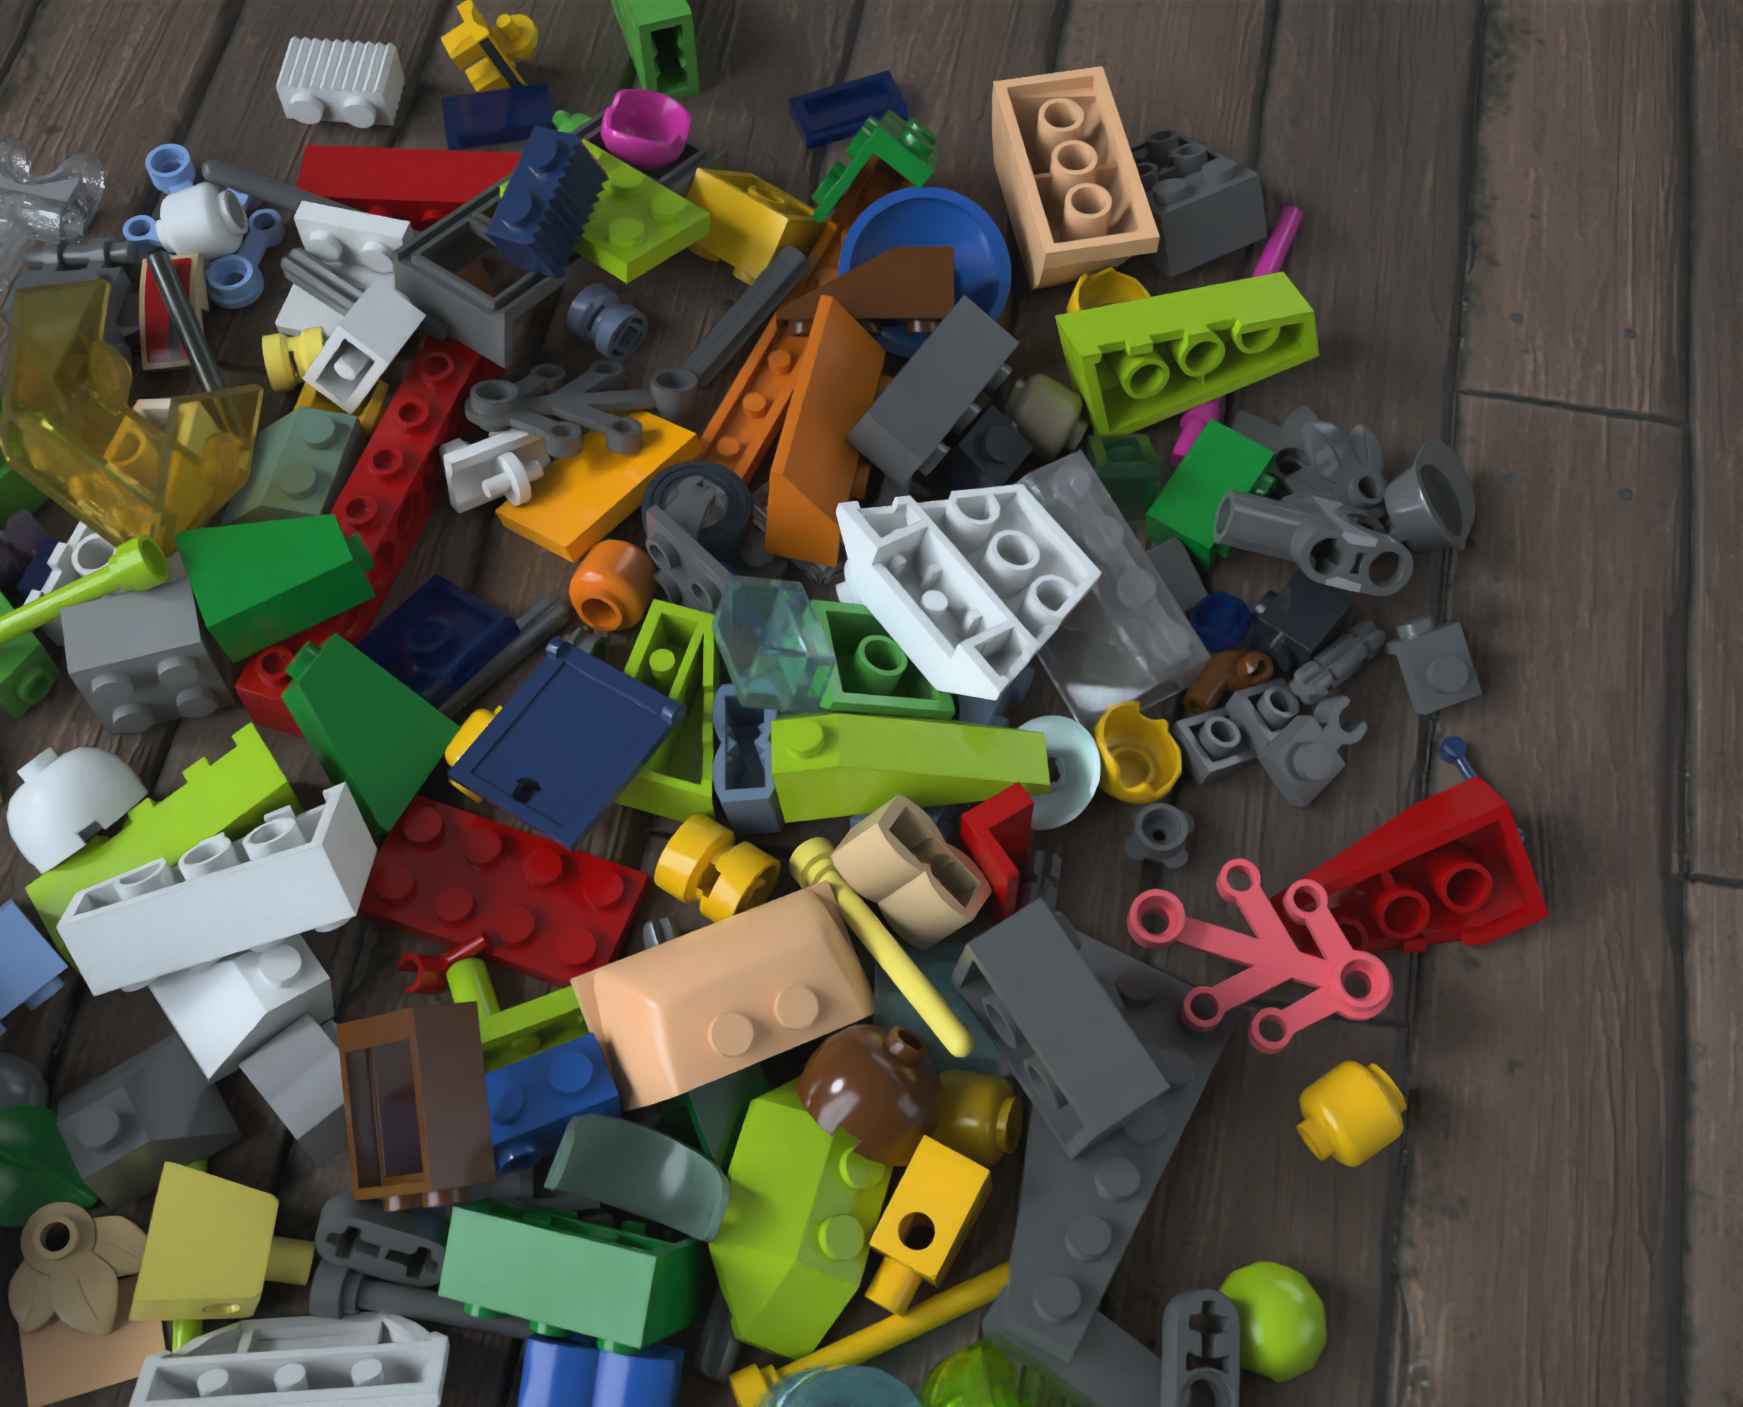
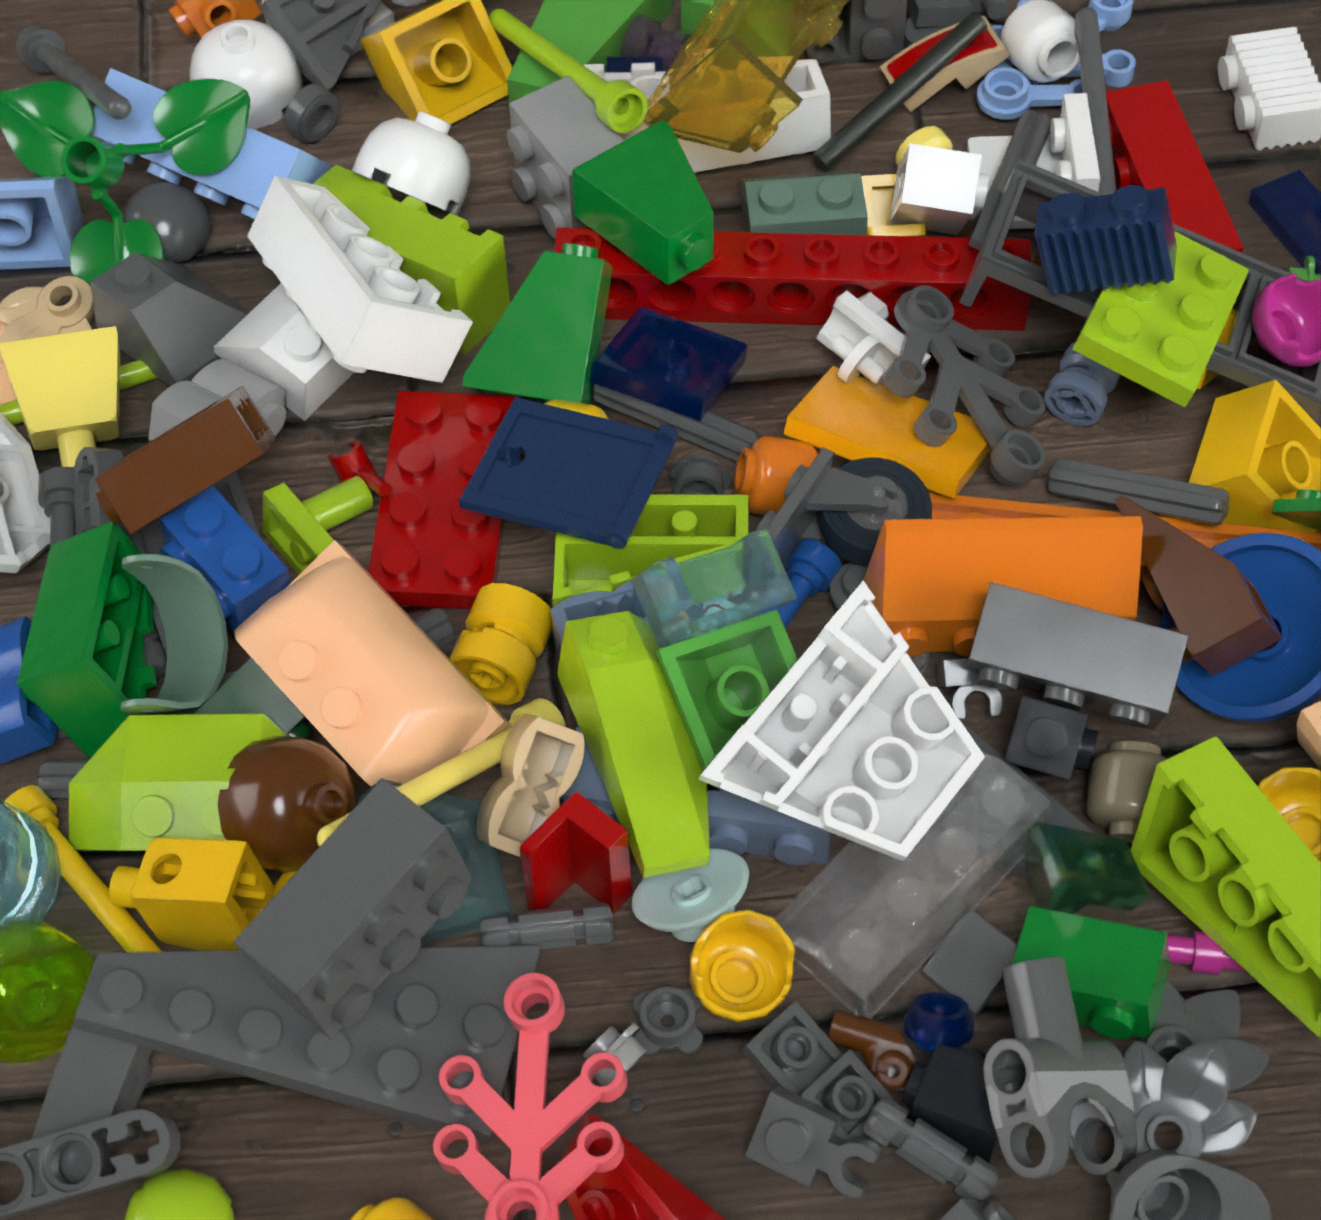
camera: 75 degrees right, 5 degrees down
(1191, 881) = (621, 1045): none -> light grey plate

